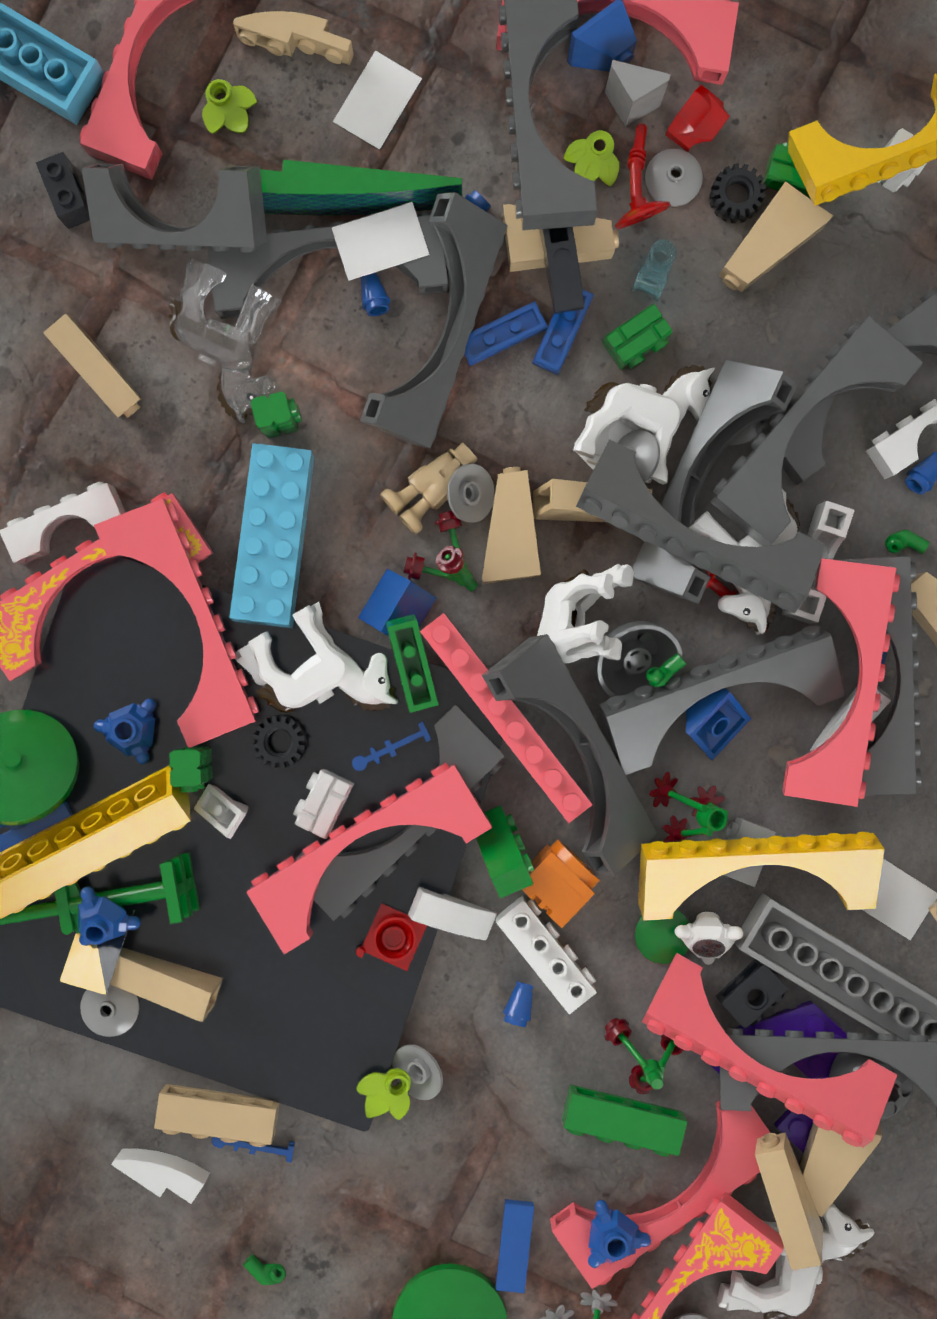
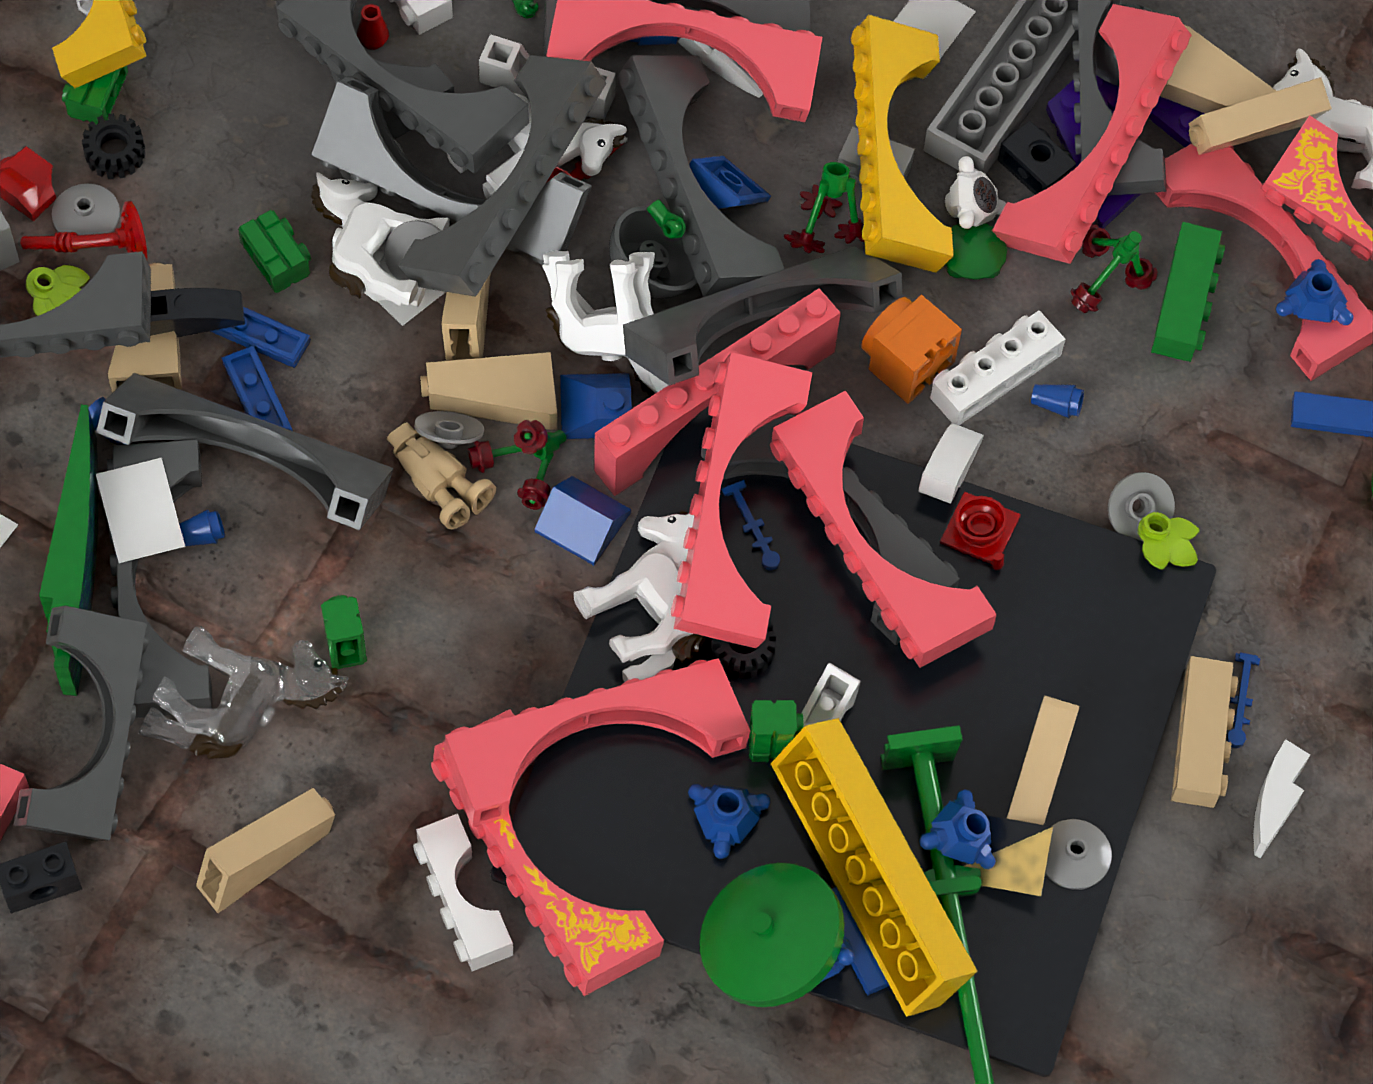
camera: 90 degrees left, 25 degrees down
(272, 536) = (491, 643): medium azure brick -> none
(323, 802) = (818, 594): white brick -> none
(412, 663) = (647, 484): green brick -> none
(469, 741) = (712, 593): none -> coral arch
(503, 614) = (592, 402): none -> blue slope
(503, 855) = (884, 388): green brick -> none
(653, 273) = (201, 233): clear light blue piece -> none
(778, 232) = (169, 111): tan slope -> none
(864, 408) = (372, 28): none -> red cone

